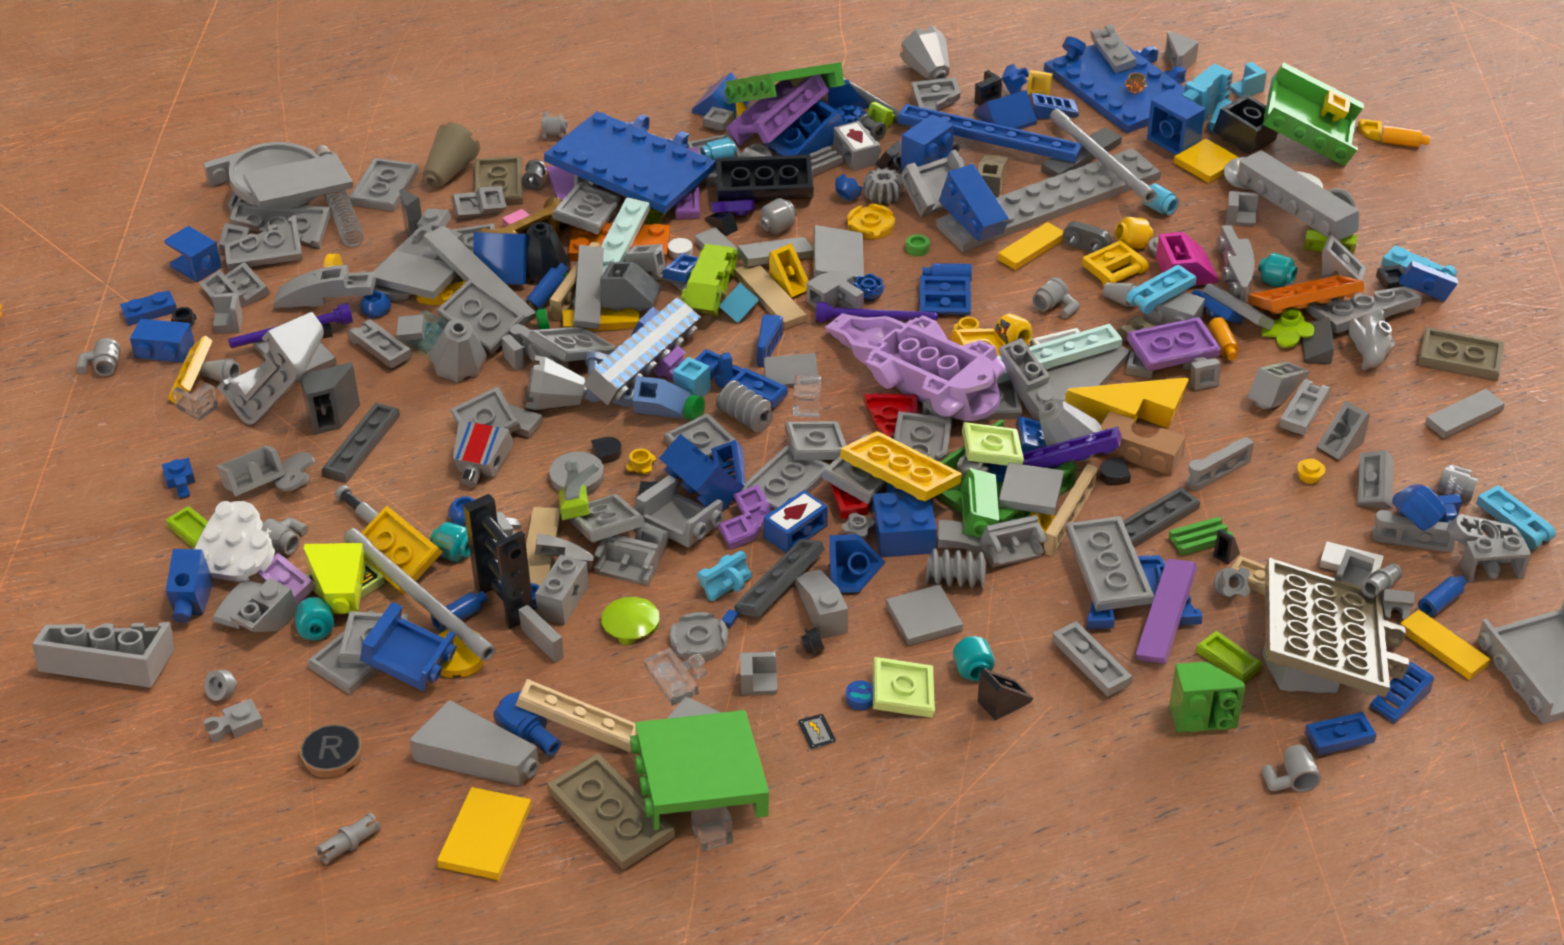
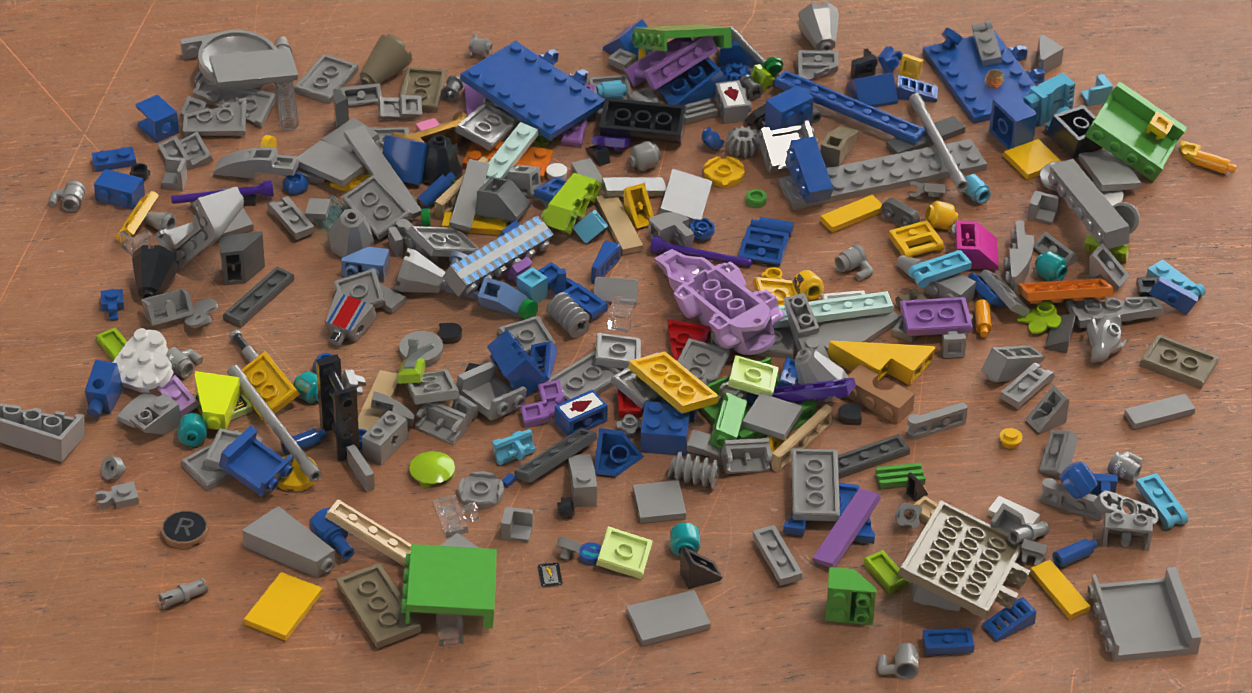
camera: 10 degrees right, 0 degrees up
(224, 427) = (153, 269): none -> black cone
(430, 221) = (354, 119): light grey plate -> none
(433, 194) = (362, 94): none -> light grey slope
(482, 379) = (366, 259): none -> medium blue slope
(640, 461) = (474, 346): yellow plate -> none
(830, 691) = (567, 547): none -> light grey tile
(892, 100) = (773, 65): none -> green plate
(984, 762) = (668, 617): none -> light grey tile
(1112, 207) = (933, 190): none -> light grey plate
(1263, 247) = (1049, 243): none -> light grey slope
(1301, 159) = (1109, 171): none -> light grey tile

